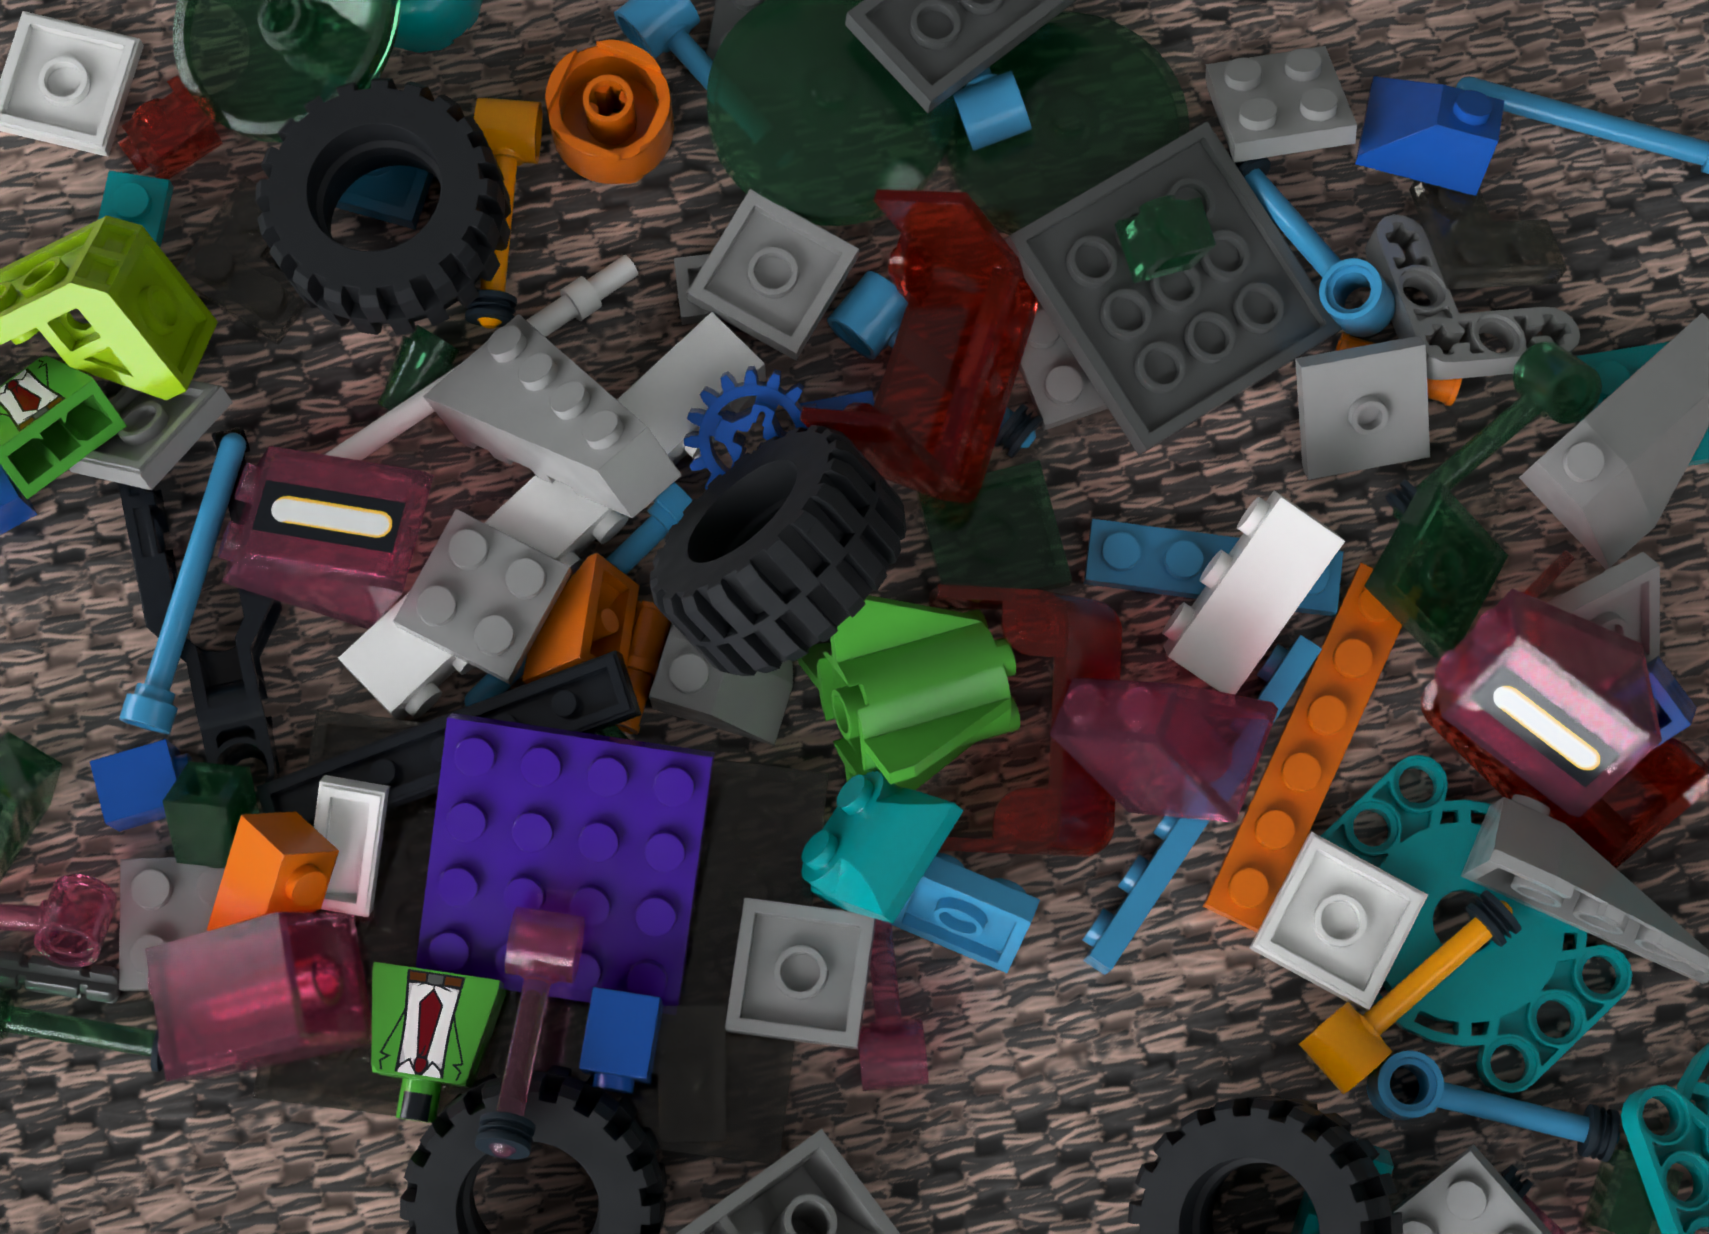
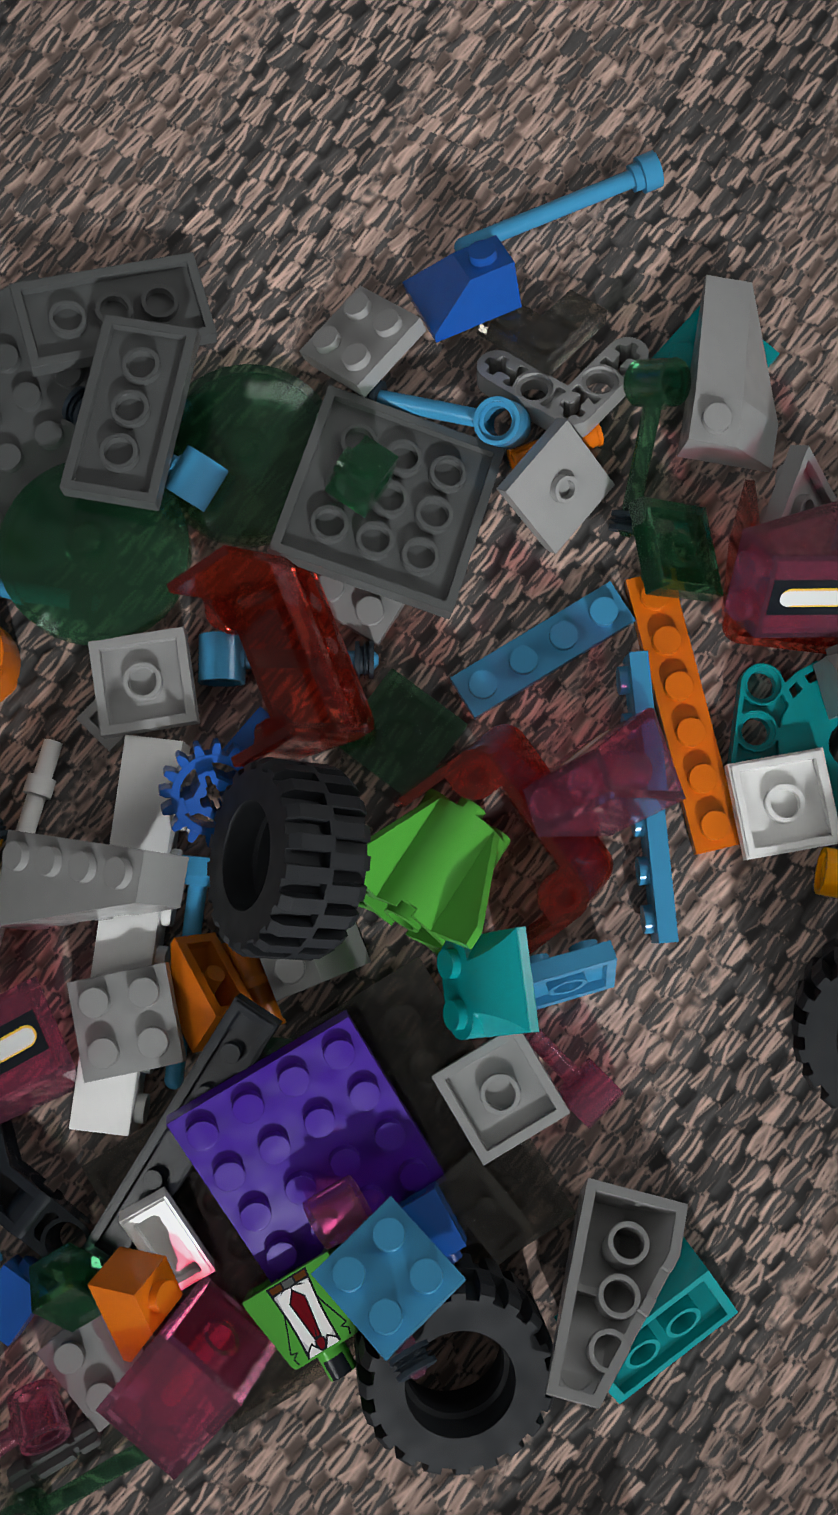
camera: 30 degrees left, 5 degrees up
(547, 1037) = (388, 1278): none -> dark azure plate
(1250, 592) = (581, 650): white brick -> none

